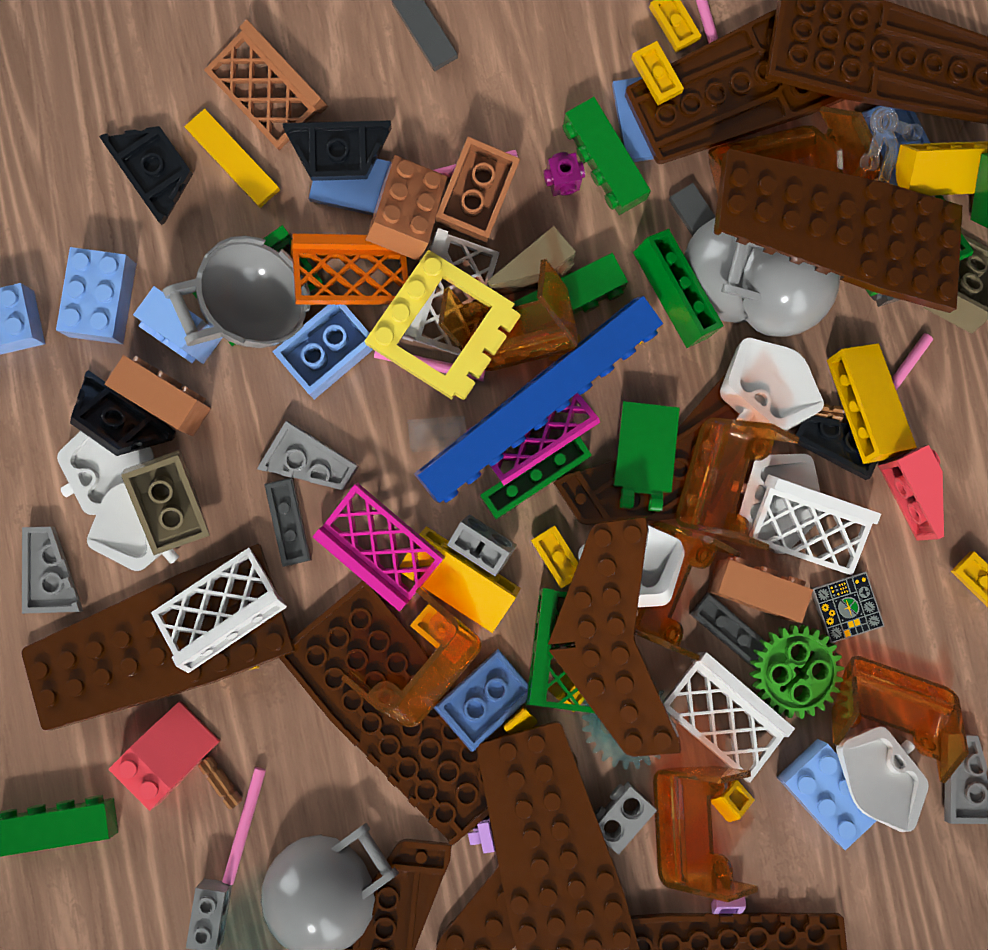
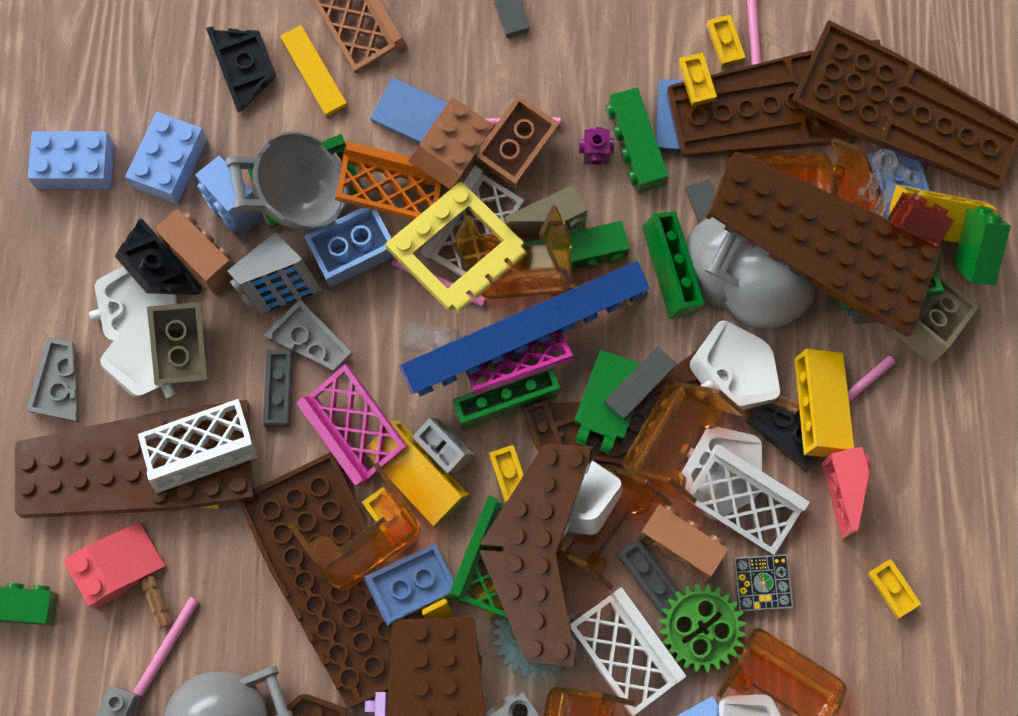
camera: 20 degrees right, 10 degrees down
(249, 404) = (272, 276): none -> light grey slope
(338, 148) = (406, 82): black wing -> none
(675, 429) = (640, 383): none -> dark grey tile
(938, 178) = (921, 219): none -> clear red brick

